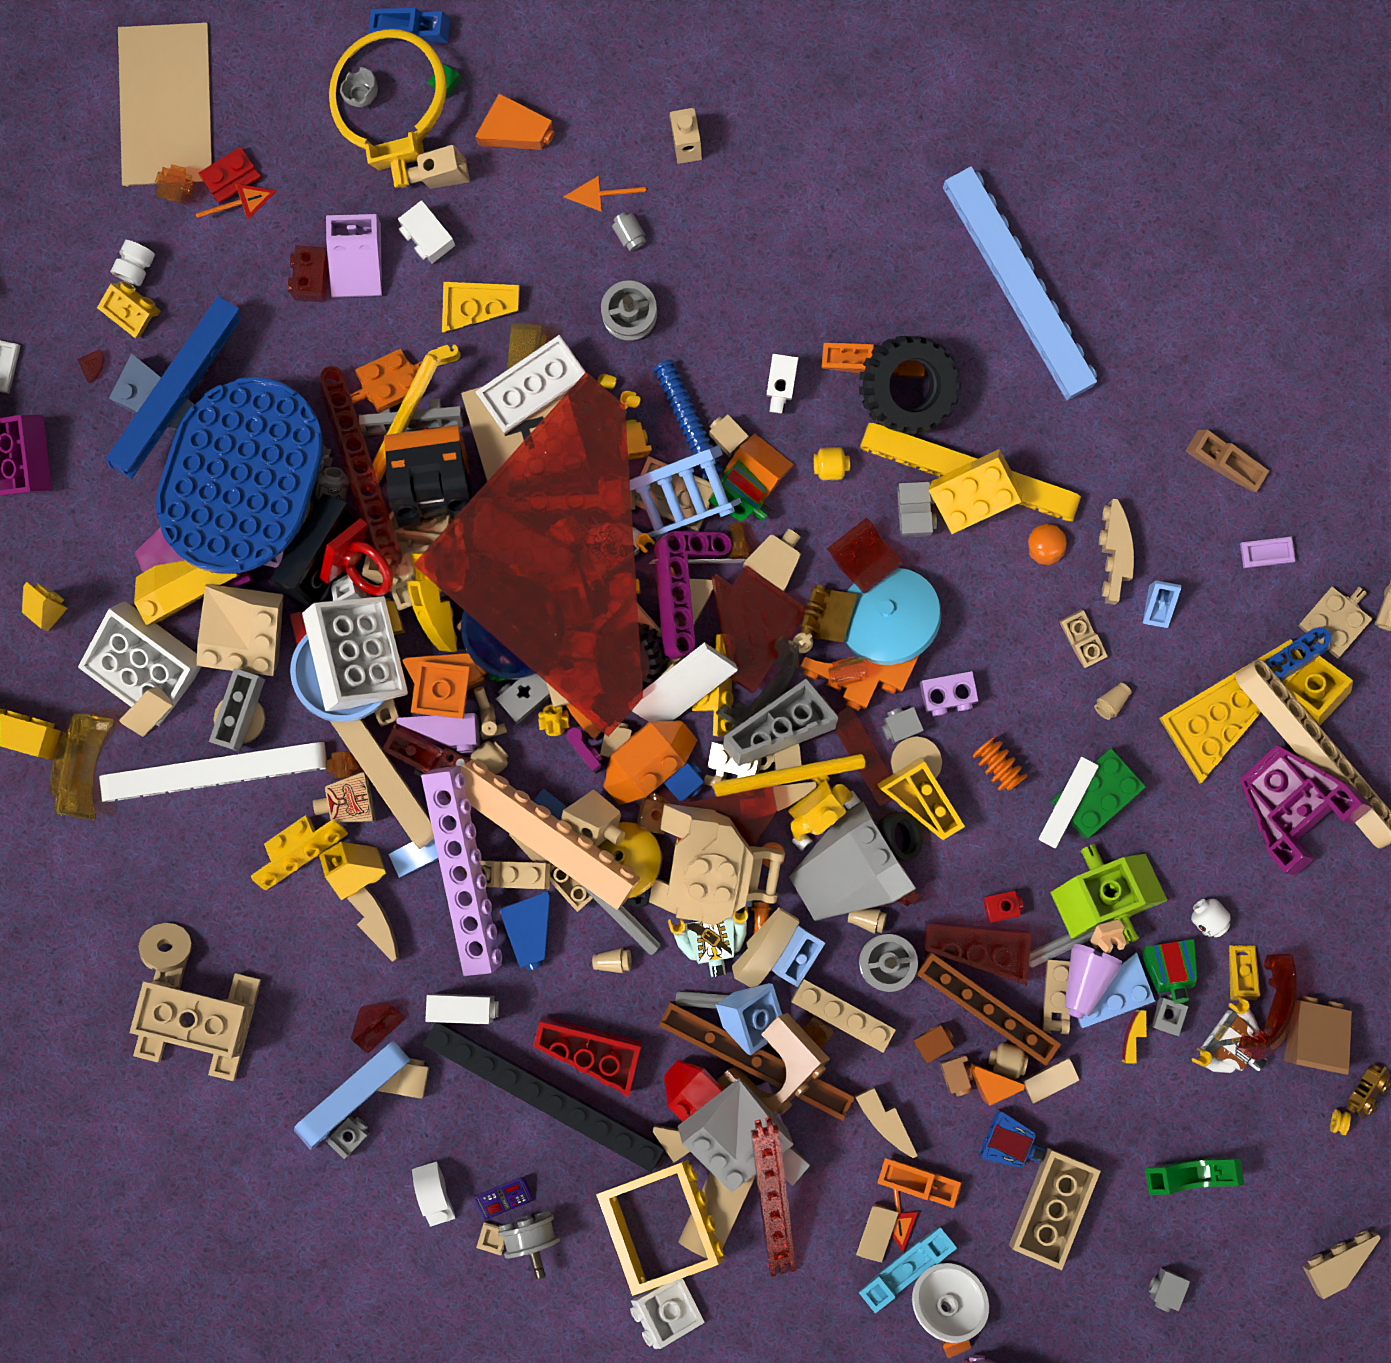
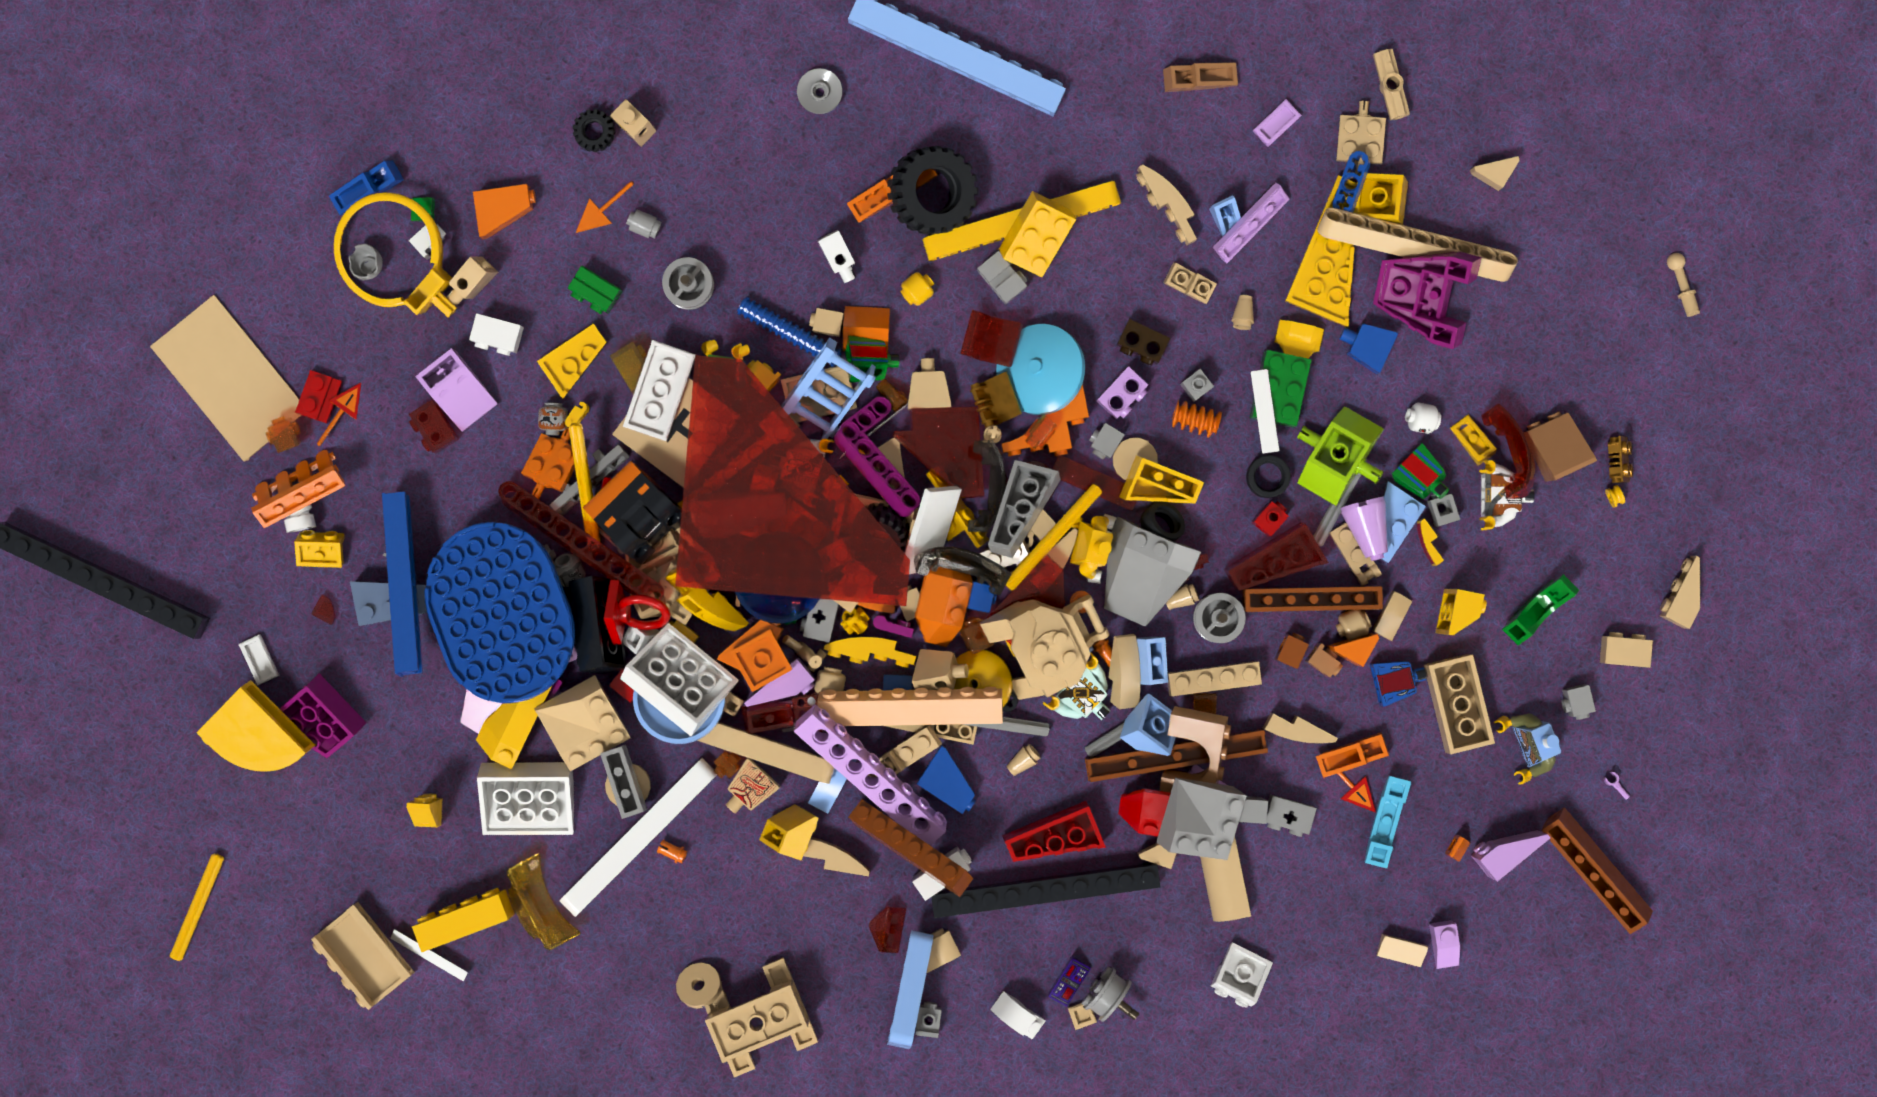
camera: 45 degrees left, 5 degrees up
(143, 243) = (297, 496): none -> orange fence
(147, 711) = (559, 829): tan slope -> none
(234, 808) = (673, 852): none -> orange pin
(295, 848) = (738, 847): yellow bracket -> none
(419, 342) = (552, 418): none -> head
(421, 104) = (422, 241): none -> white brick
(449, 963) = (911, 848): none -> dark orange brick
(540, 749) = (860, 648): none -> yellow slope
(542, 257) = (594, 290): none -> green brick
(624, 1243) = (1176, 949): yellow window -> none
(646, 104) = (590, 117): none -> black tyre
(691, 737) = (965, 562): none -> clear smoke windscreen
(773, 1197) = (1258, 841): clear red hinge -> none
(834, 1202) = (1302, 813): none -> light grey brick
(872, 215) = (815, 80): none -> light grey dish
(877, 1233) = (1348, 812): tan slope -> none
(960, 1292) = (1437, 811): white dish -> none
(1007, 657) = (1145, 336): none -> dark brown brick
(1022, 734) = (1196, 385): none -> light grey brick
(1046, 860) = (1285, 473): none -> black tyre
(1047, 544) = (1114, 233): orange hair -> none
(1101, 1298) = (1536, 742): none -> torso
(1109, 934) = (1359, 485): light nougat tile -> none
(1118, 1118) = (1459, 610): none -> yellow slope
(1147, 760) = (1298, 338): none -> yellow slope
(1179, 624) = (1251, 222): none -> lavender tile
(1208, 814) = (1369, 345): none -> blue torso
(1247, 1276) = (1626, 651): none -> tan brick

